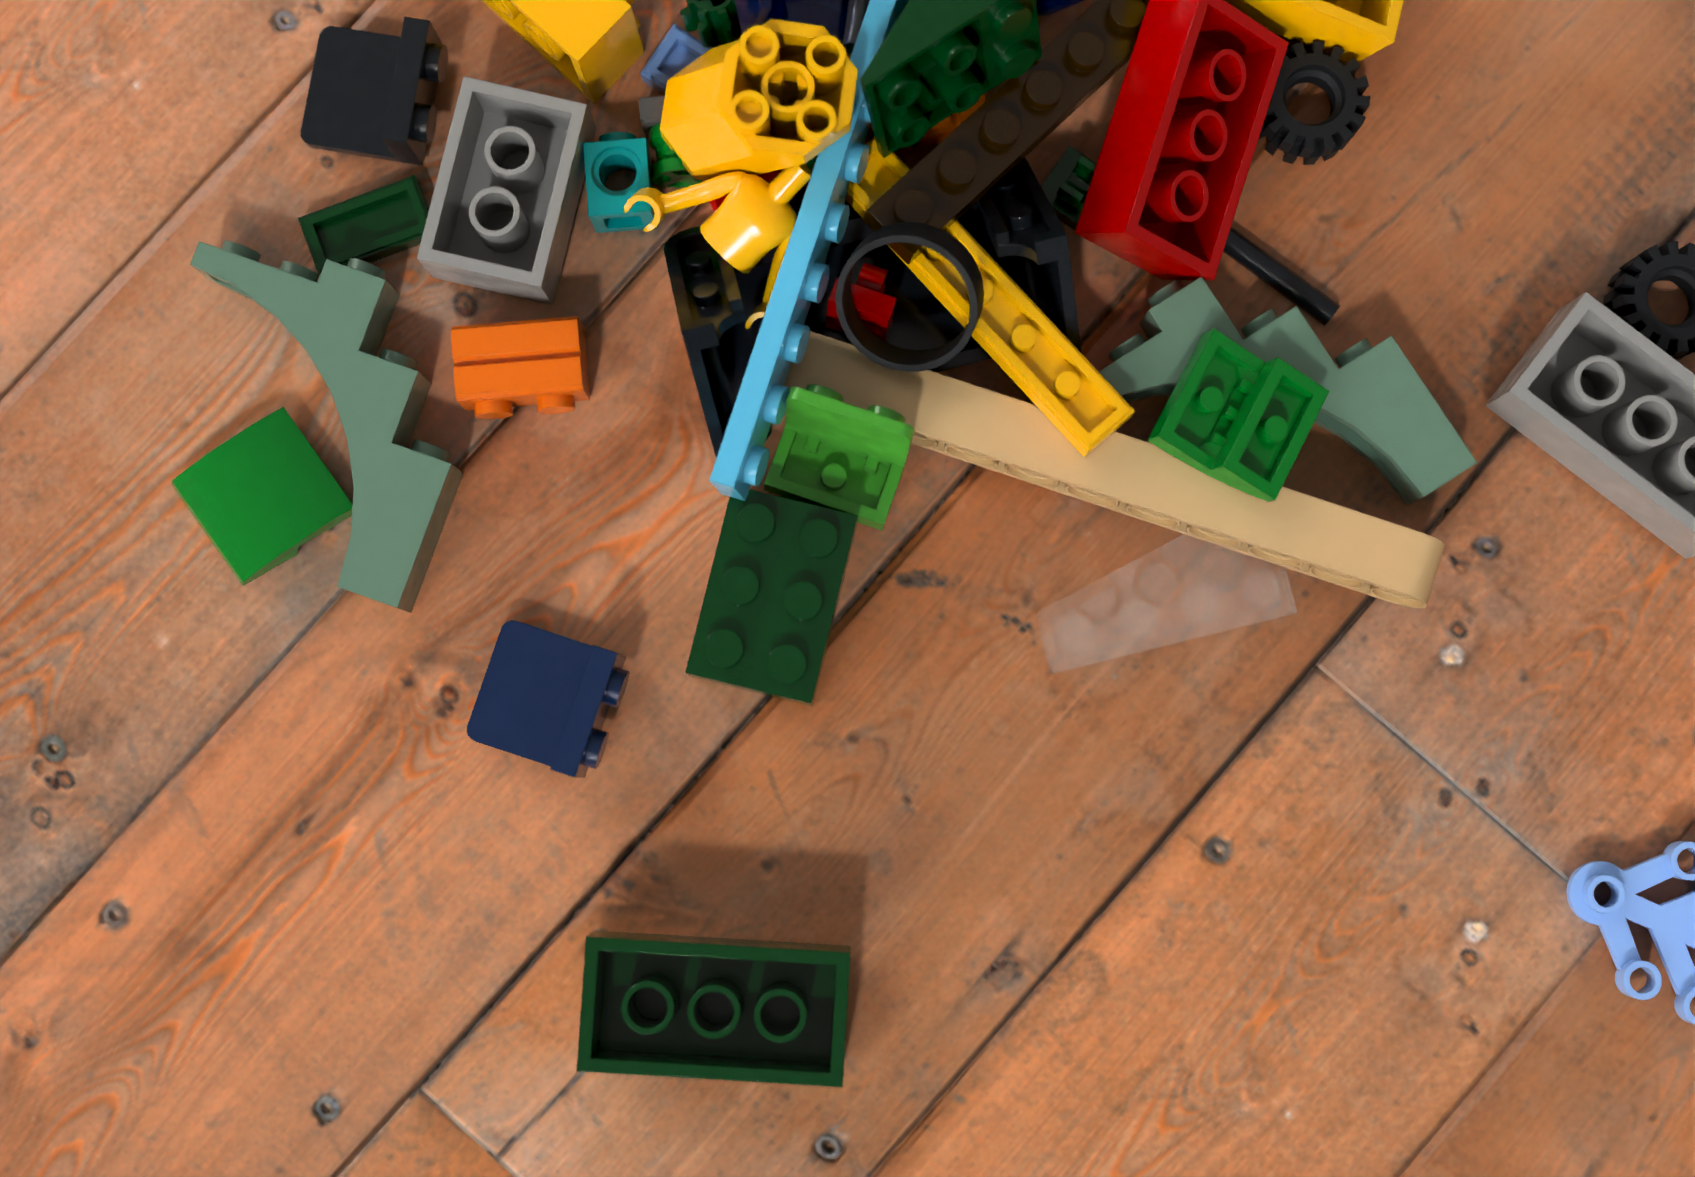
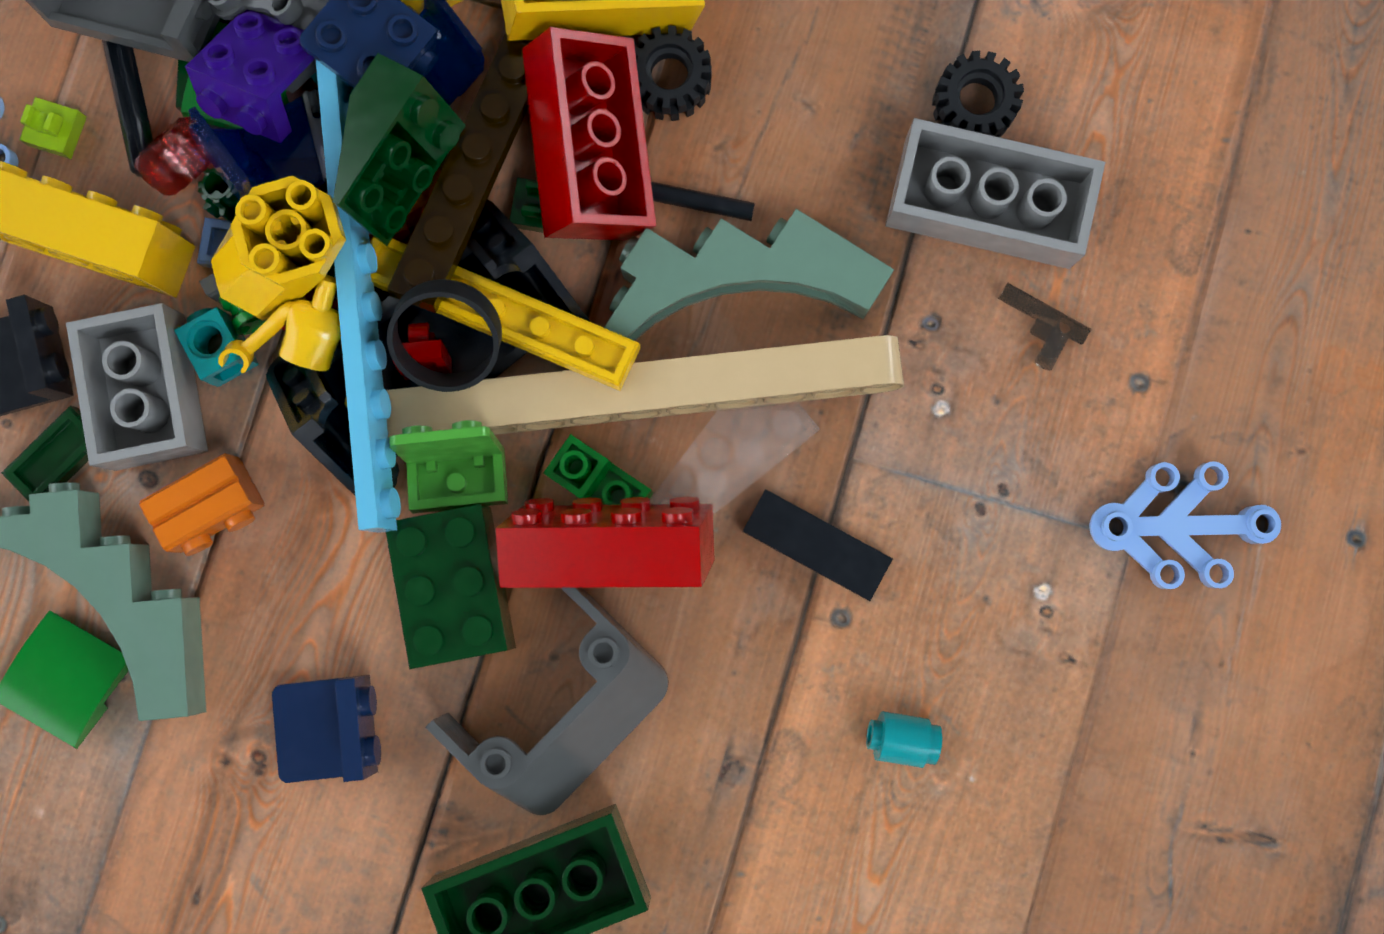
camera: 15 degrees left, 0 degrees up
(854, 848) = (625, 692): none -> dark grey windscreen
(988, 632) = (606, 544): none -> red brick
(1001, 554) = (592, 475): none -> green slope
(1230, 750) = (817, 545): none -> black tile
(1231, 1030) = (904, 740): none -> teal brick
(1238, 416) = (713, 313): green slope -> none
(1626, 613) = (1046, 324): none -> clear smoke hose

